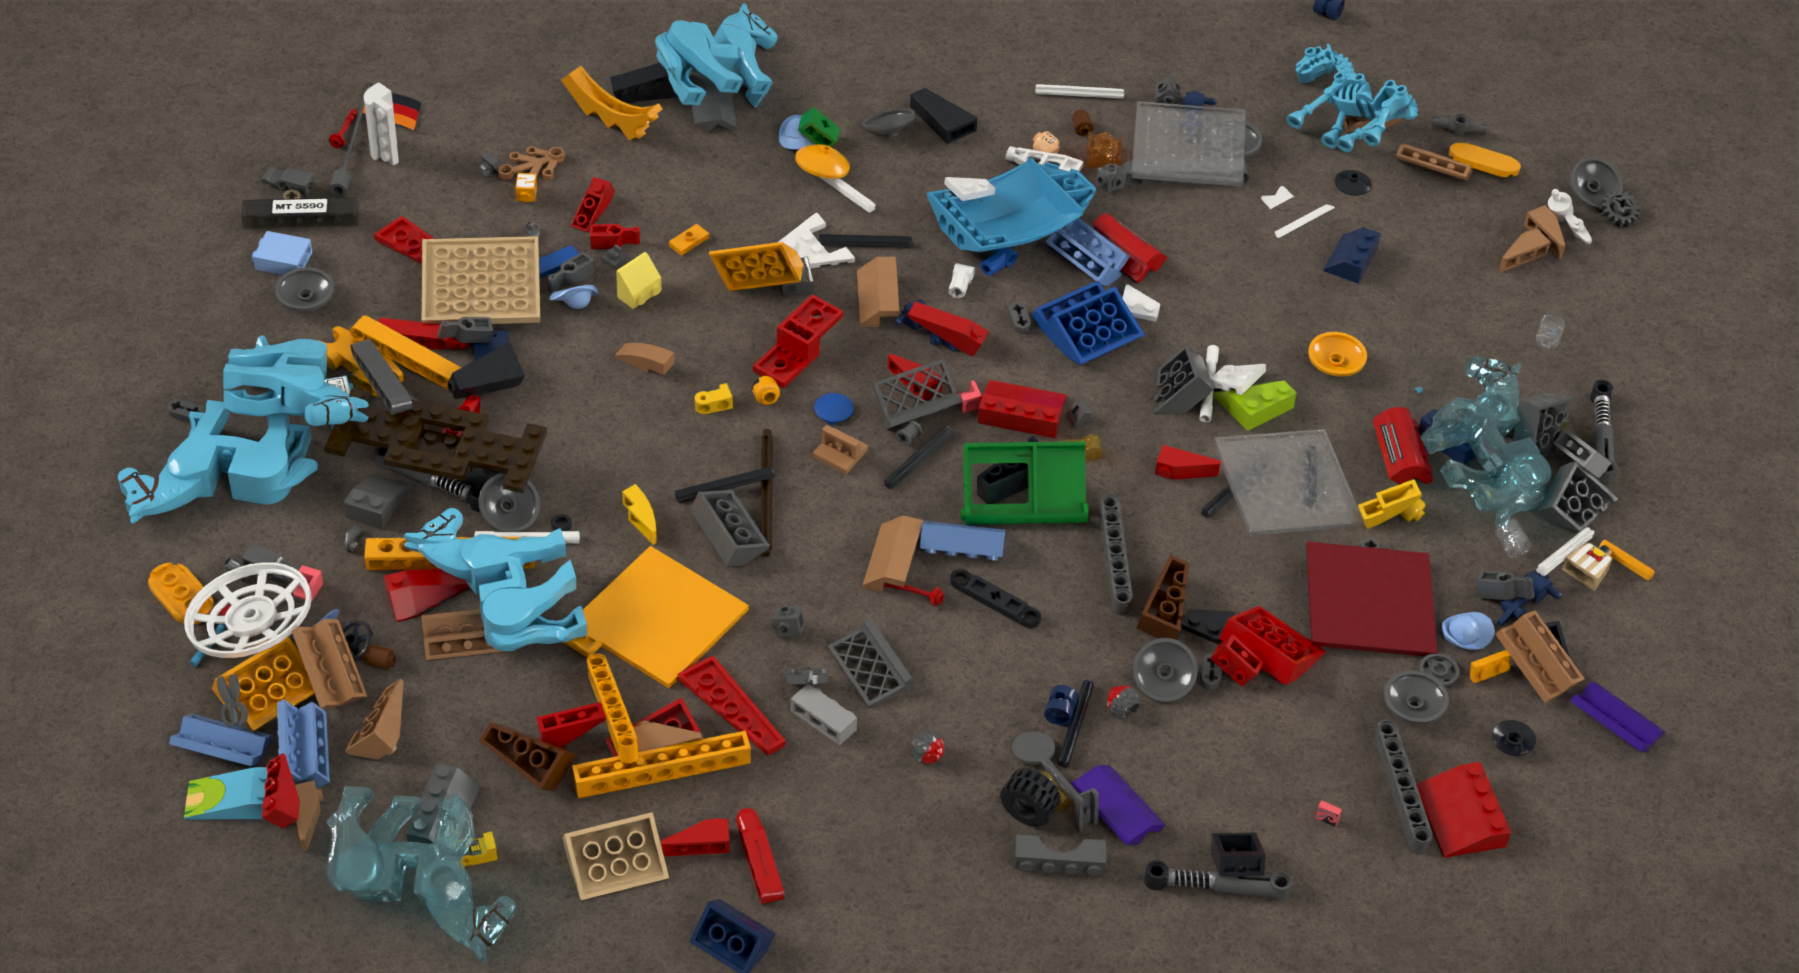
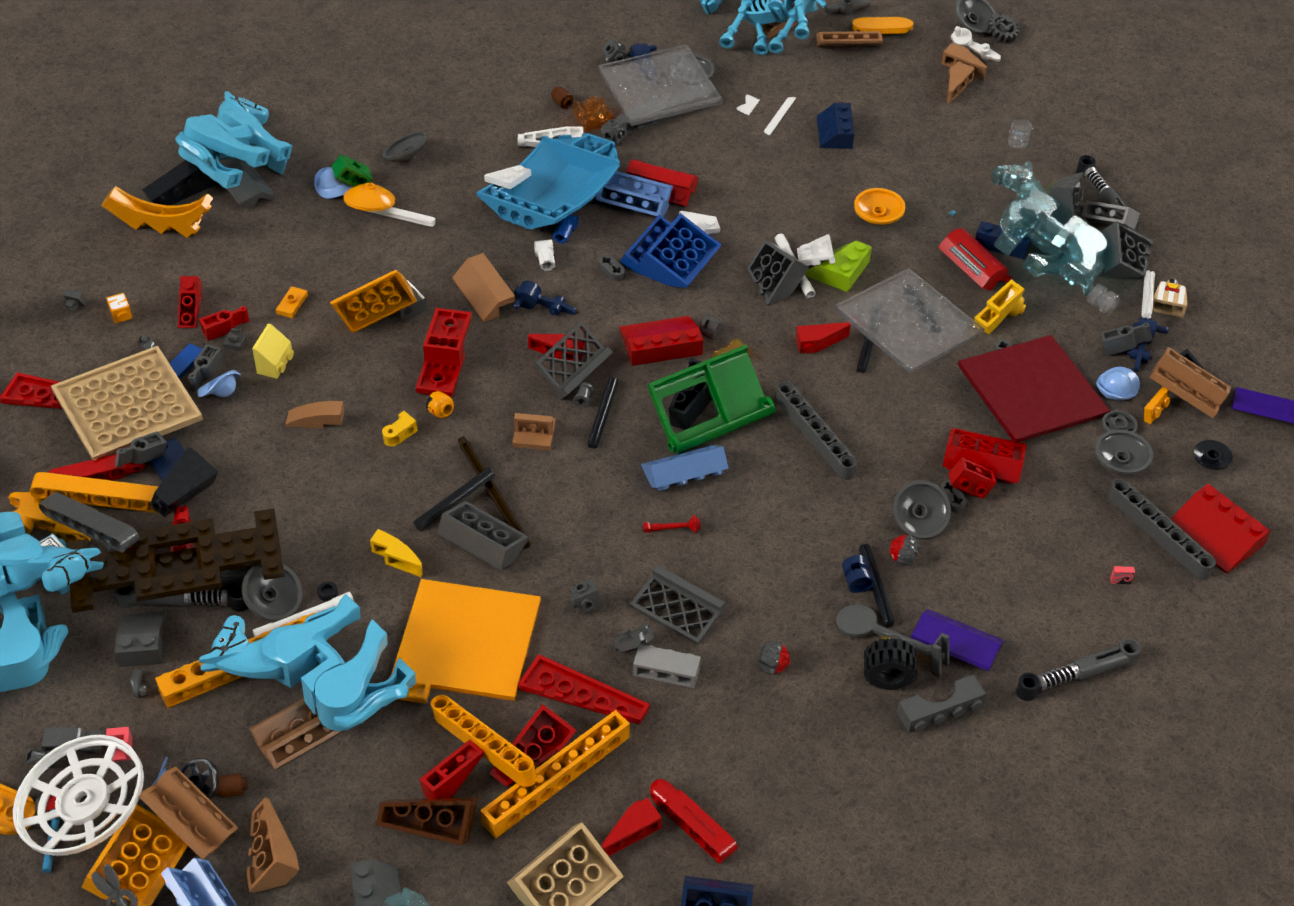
camera: 25 degrees left, 0 degrees up
(418, 590) = (232, 706): red wedge -> none
(553, 156) = (127, 273): medium nougat plant -> none
(658, 735) = (544, 747): medium nougat slope -> none
(806, 244) = (388, 264): white wing -> none
(833, 408) = (505, 398): blue dish -> none
(865, 240) = (443, 250): black axle -> none
(893, 553) = (636, 501): medium nougat slope -> none
(943, 116) = (446, 129): black slope -> none
(955, 329) = (568, 295): red wedge -> none
(970, 399) = (617, 345): coral panel -> none
(1006, 604) = (754, 506): black piece -> none
(1046, 142) = (544, 121): light nougat head -> none
(1079, 91) = (542, 74): white axle -> none
(1165, 605) = (883, 456): reddish brown wedge -> none
(1206, 623) = (922, 458): black wing -> none
(1247, 854) = (1099, 637): black window -> none
(1353, 182) = (796, 74): black dish -> none
(1629, 561) = (1194, 285): light orange axle -> none

